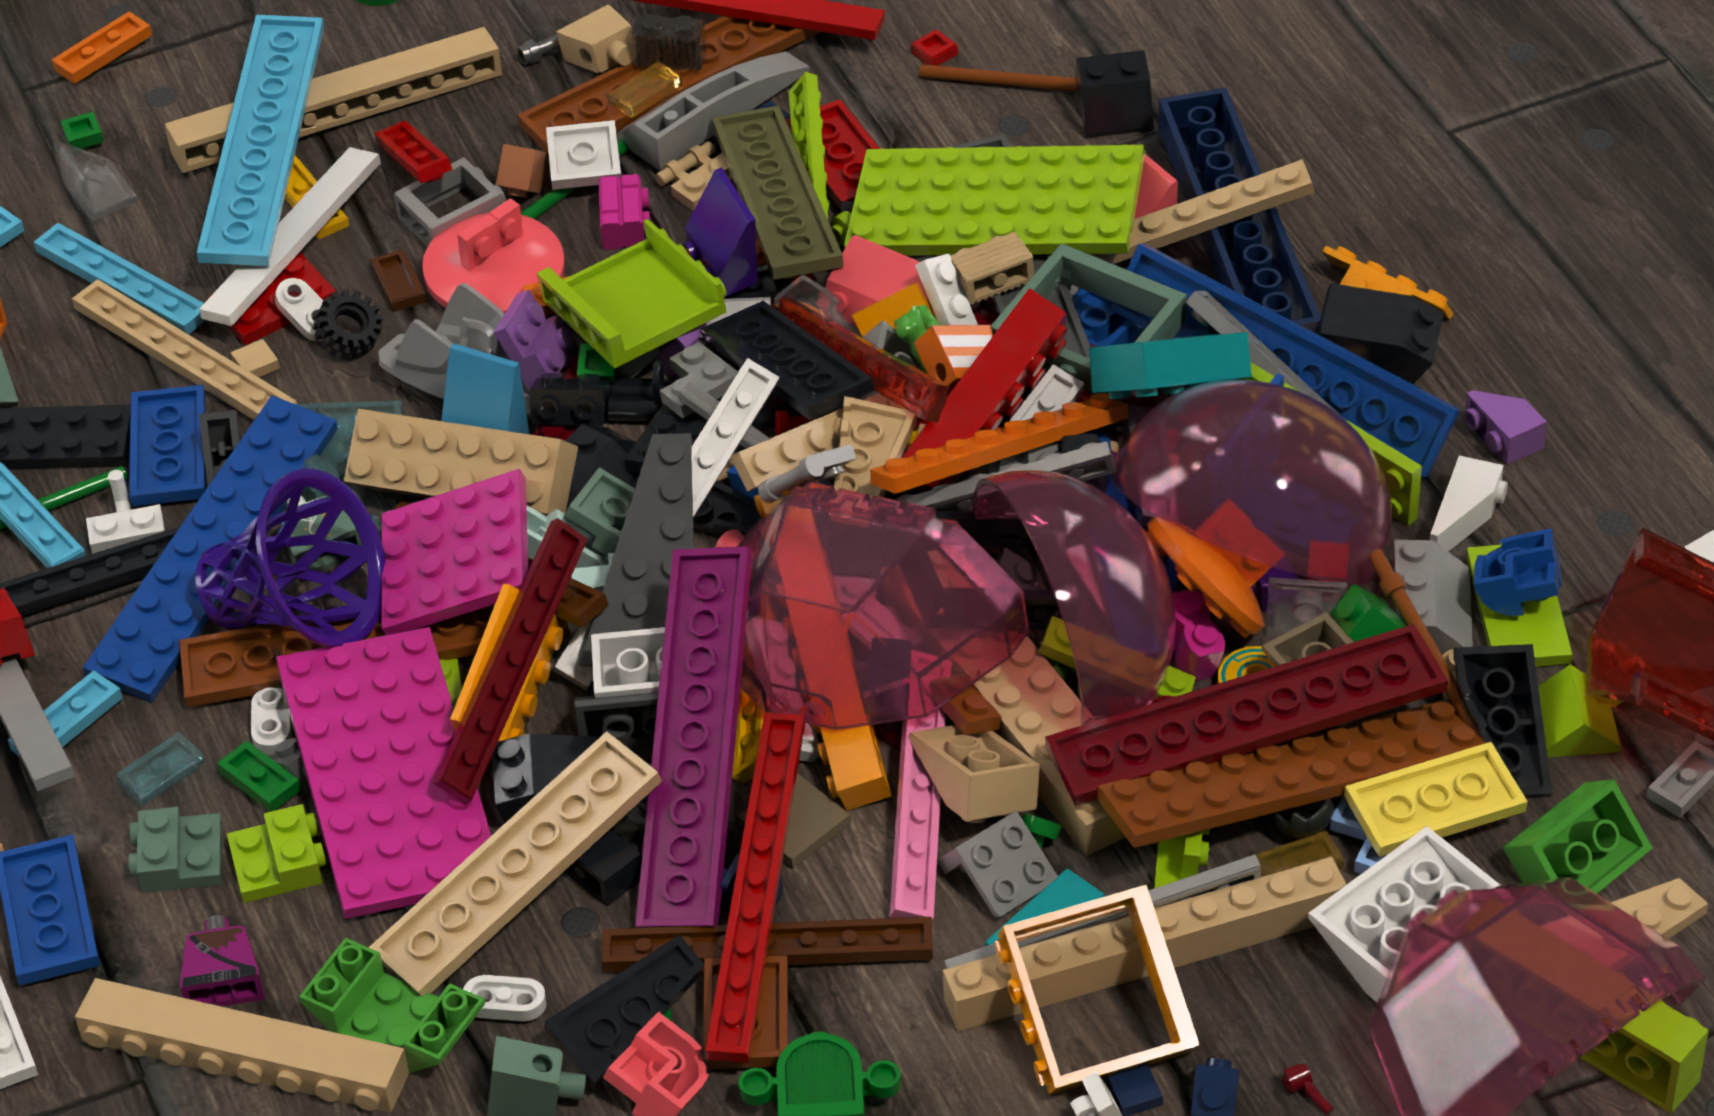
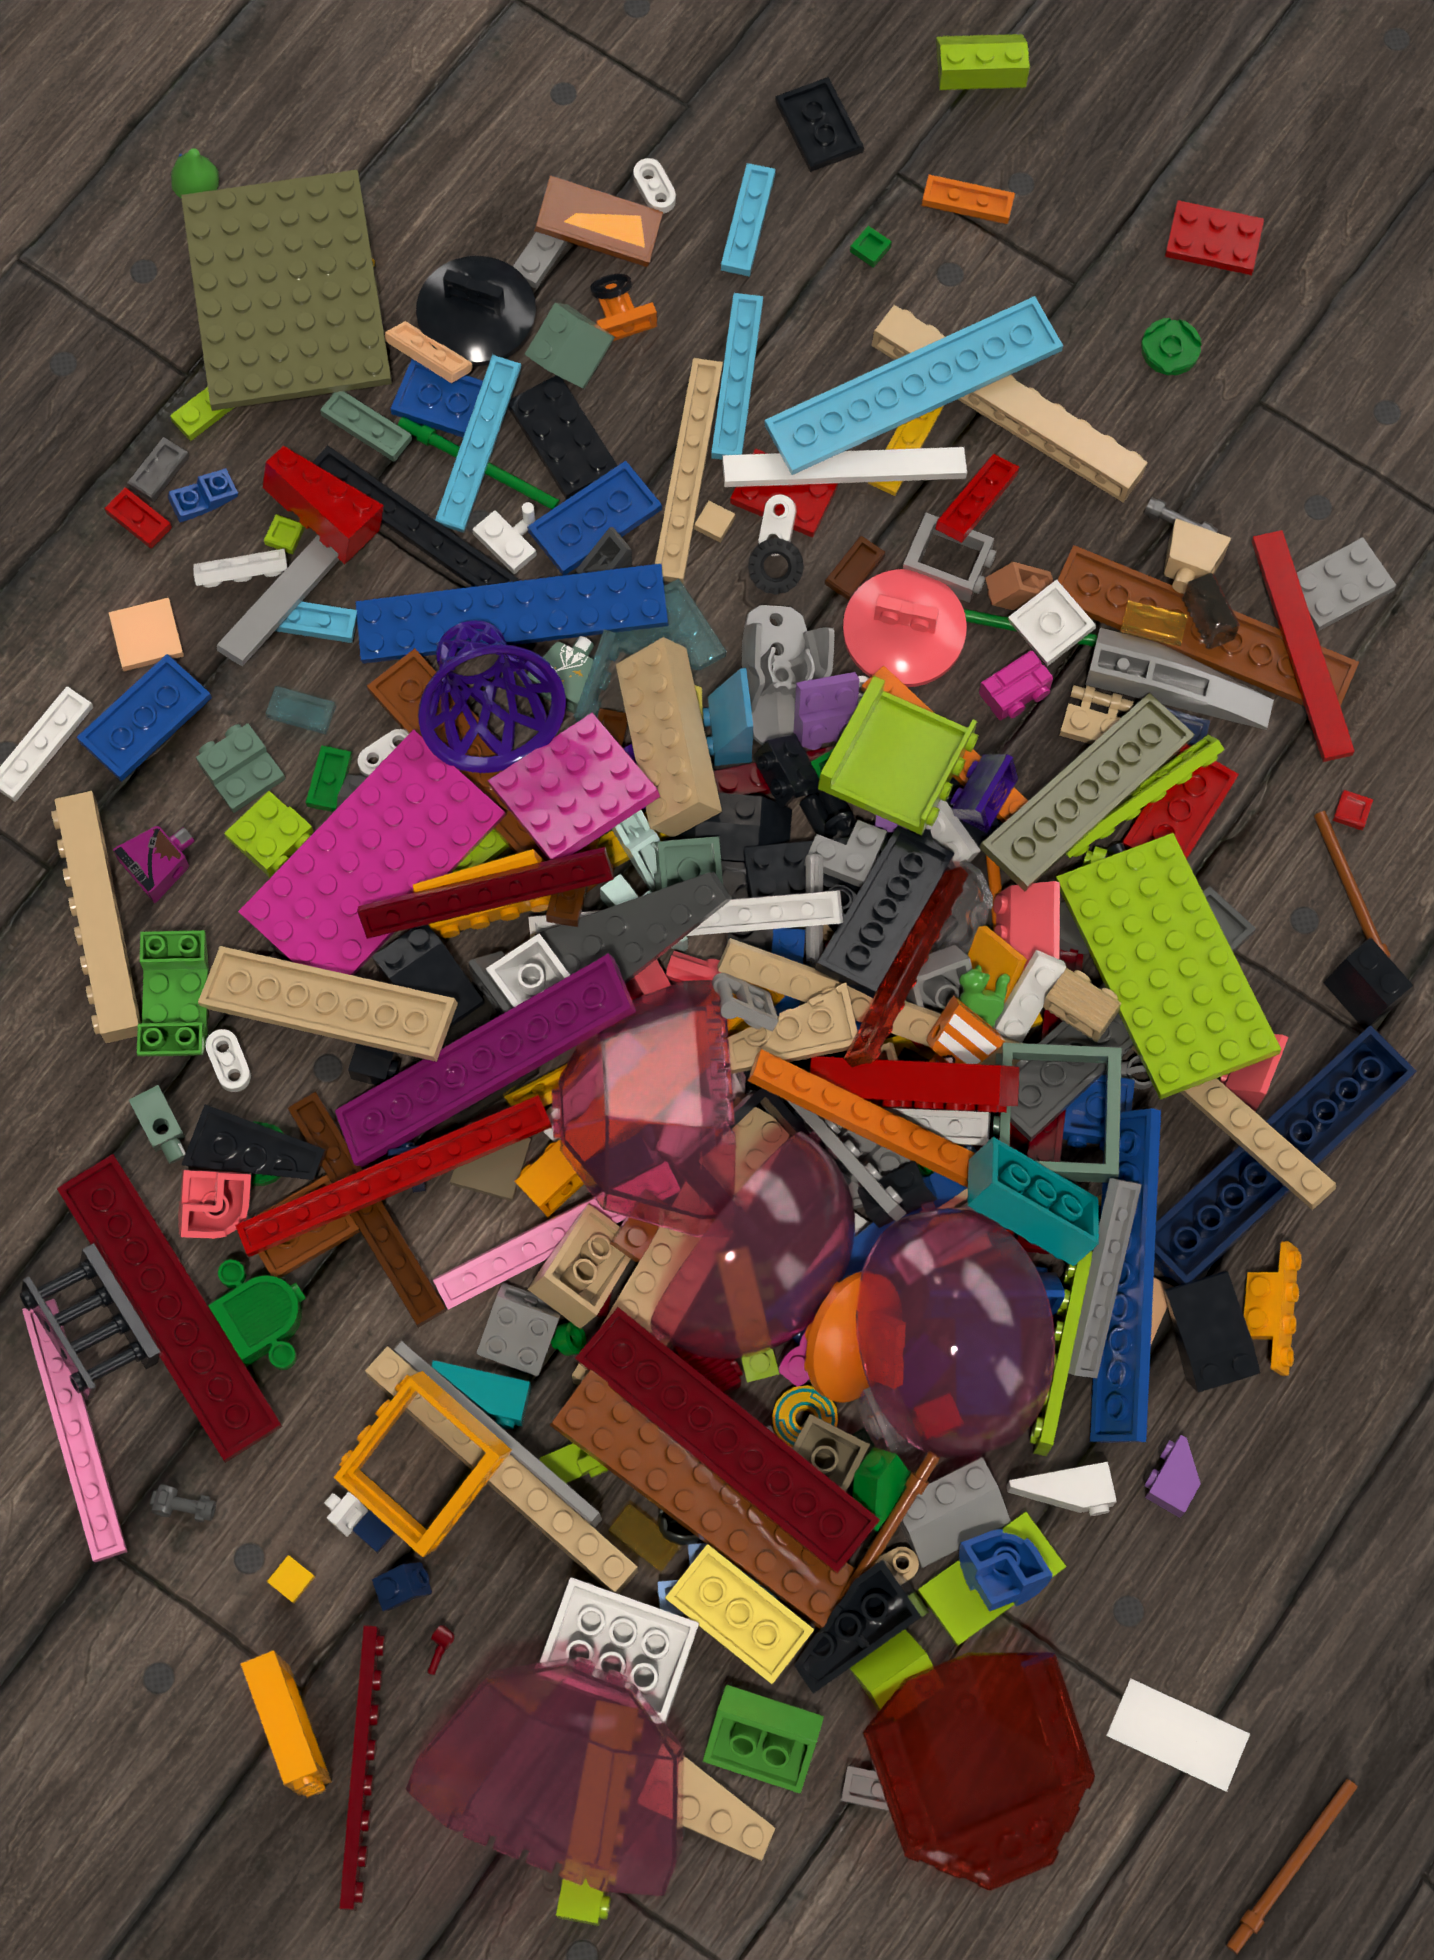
camera: 55 degrees right, 25 degrees up
(93, 181) = (824, 291): clear slope -> none

